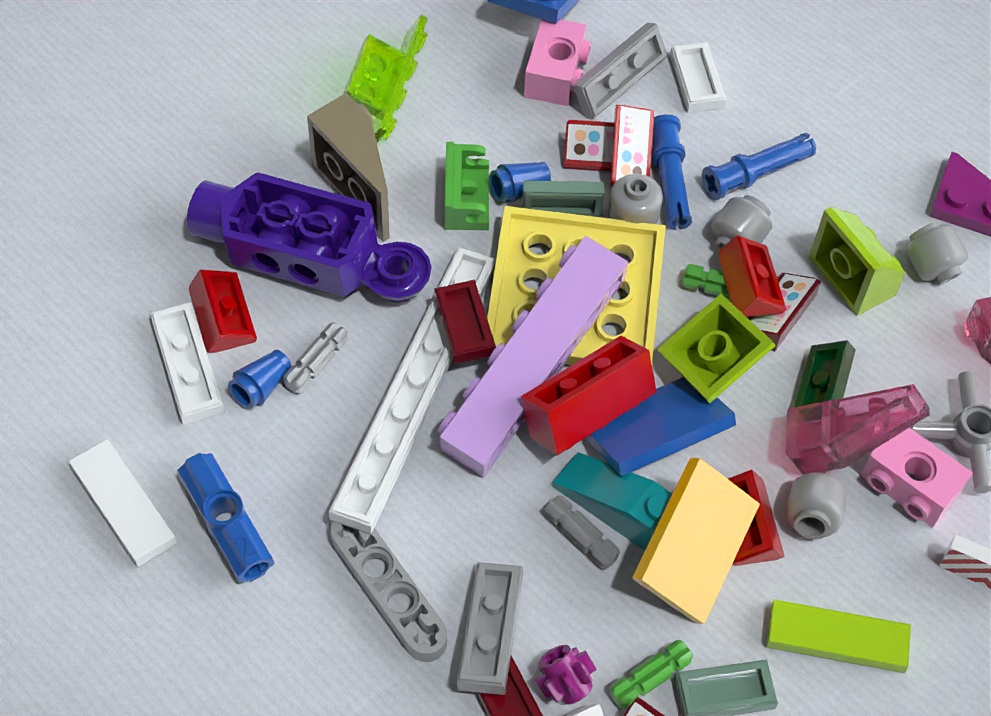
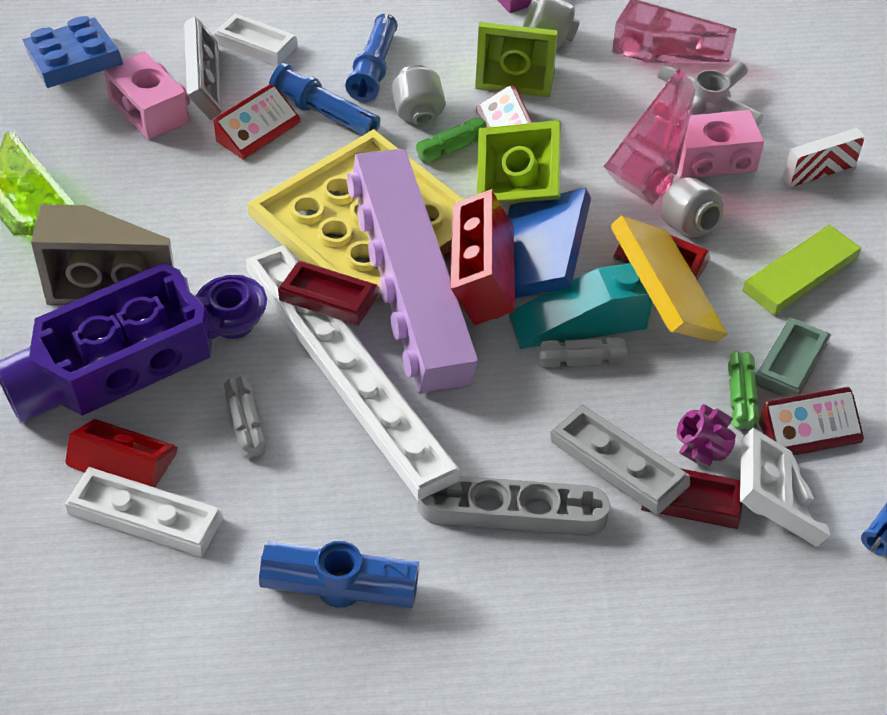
camera: 50 degrees left, 10 degrees down
(123, 502) = (237, 650): white tile -> none
(257, 380) = (225, 467): blue cone -> none
(466, 188) = (193, 223): bright green hinge -> none
(507, 179) = (227, 186): blue cone -> none
(564, 197) = (277, 167): sand green tile -> none
(631, 142) = (280, 104): slope -> none
(635, 199) = (332, 129): light grey head -> none
(751, 277) = (467, 114): red slope -> none
(826, 373) = (590, 136): dark green plate -> none

